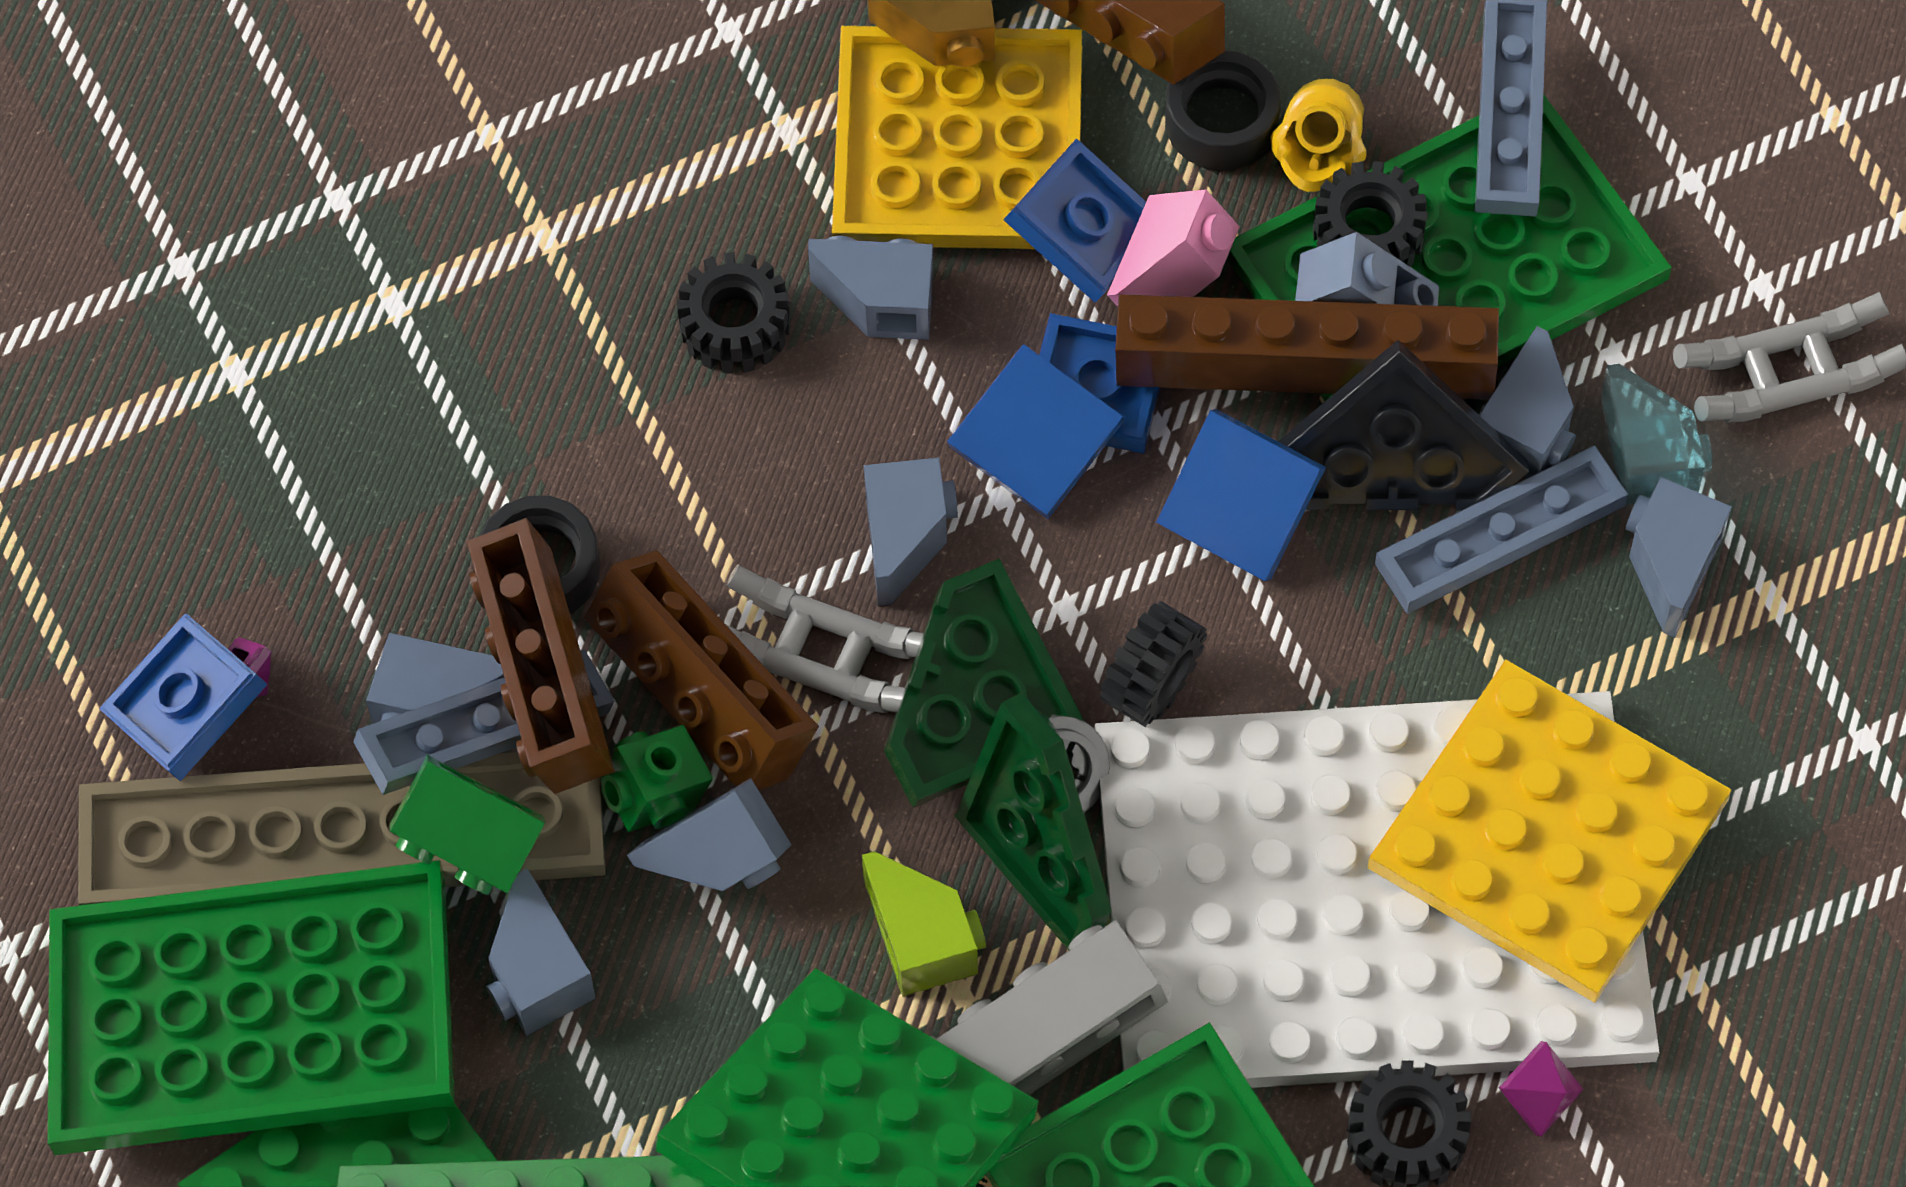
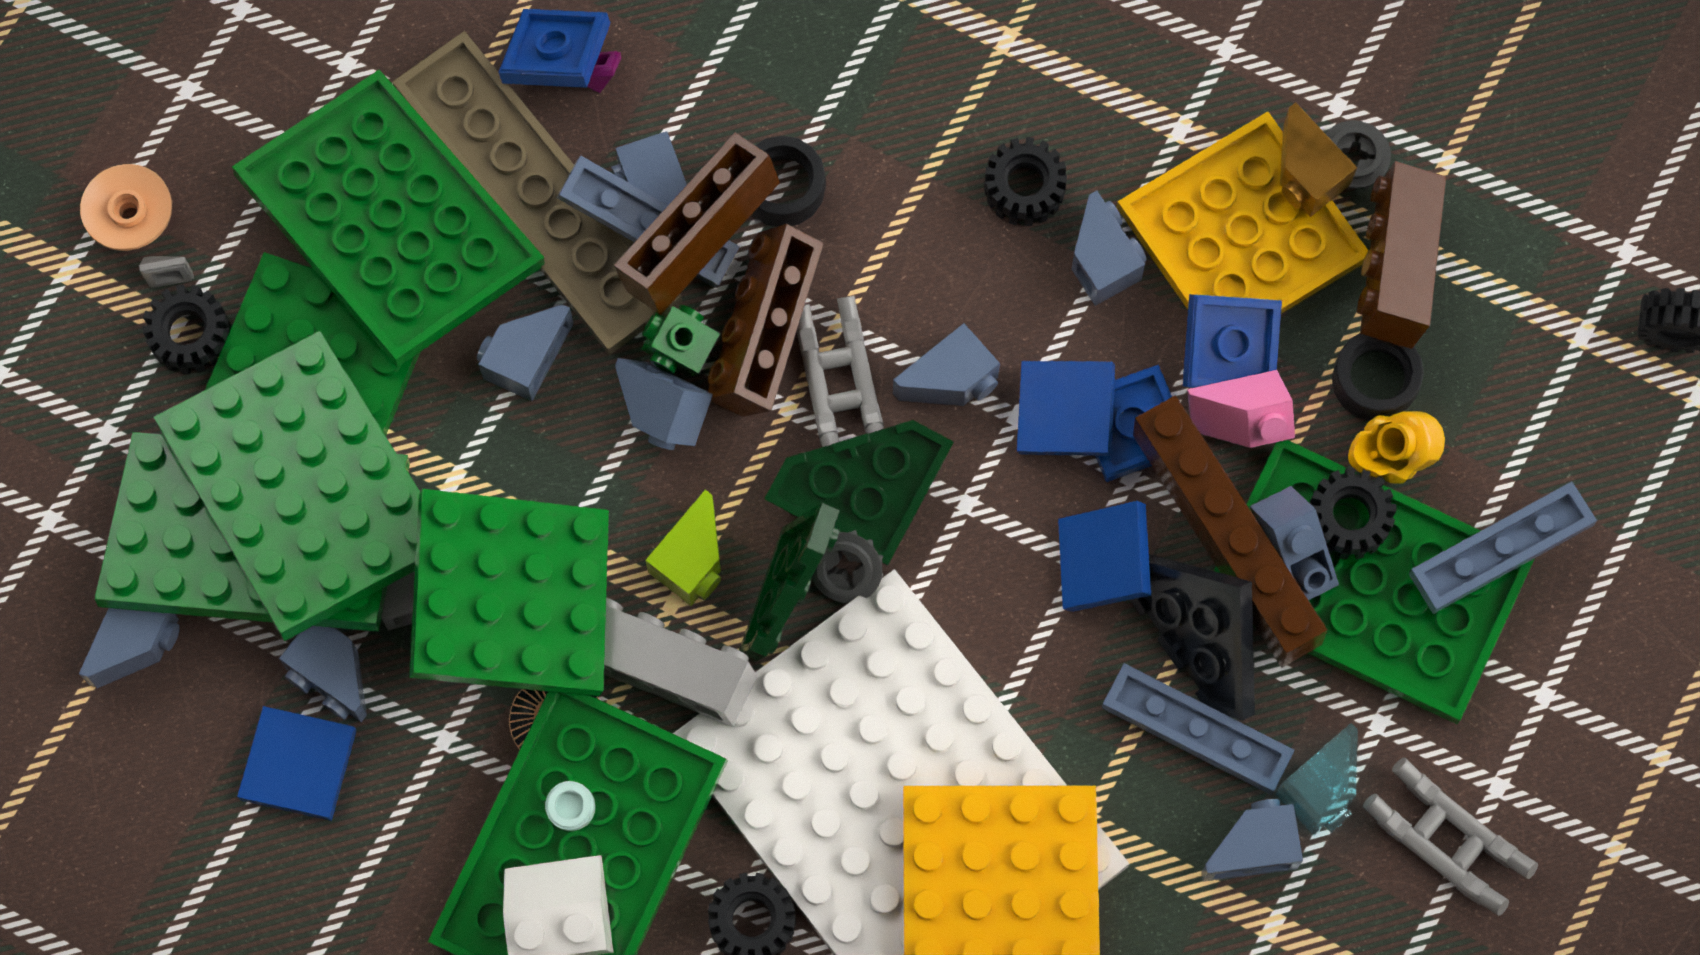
camera: 55 degrees right, 10 degrees up
(466, 826) = (565, 255): green brick -> none
(1153, 664) = (948, 577): black tyre -> none
(1534, 406) = (1292, 694): sand blue slope -> none

